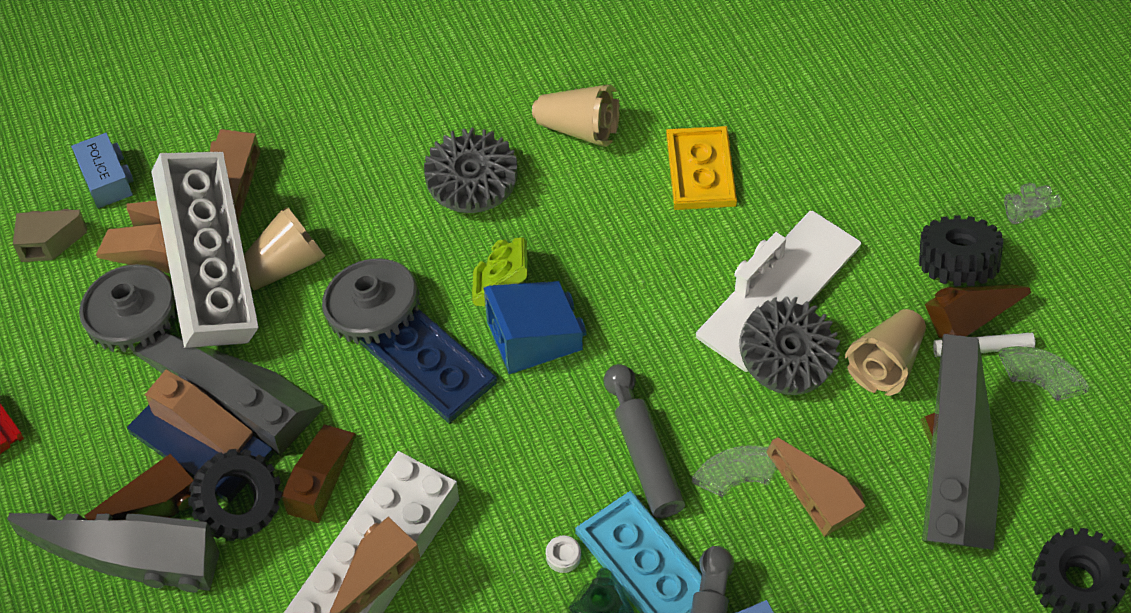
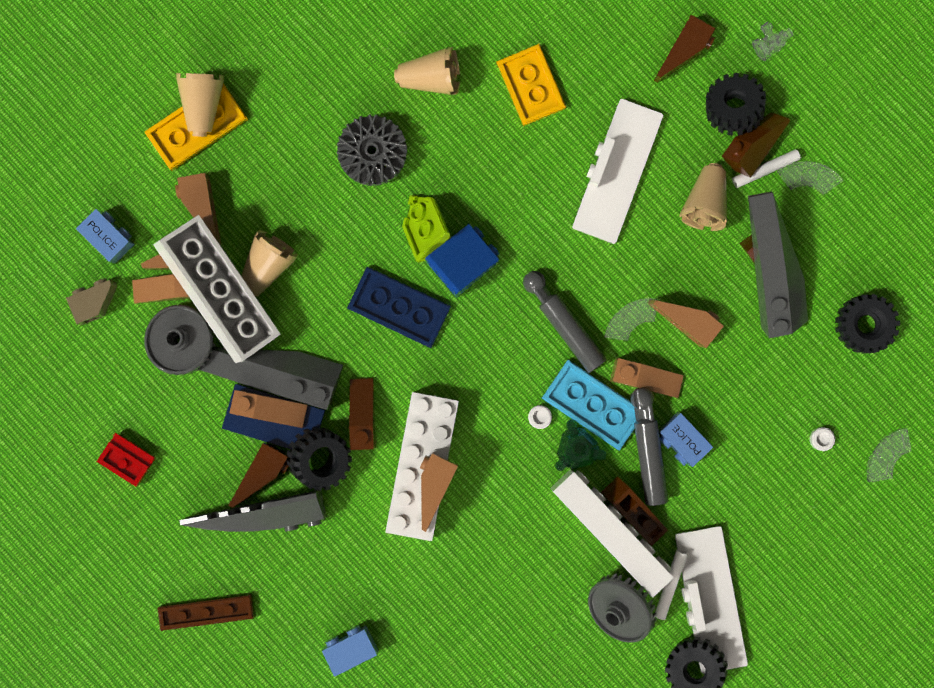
camera: 20 degrees left, 30 degrees up
(271, 95) = (179, 145): none -> yellow tile
(289, 56) = (199, 101): none -> tan cone
(370, 300) = (357, 286): dark grey wheel -> none
(753, 559) = (645, 376): none -> medium nougat slope
(788, 346) = (654, 219): dark grey wheel -> none
(914, 179) = (690, 43): none -> reddish brown slope

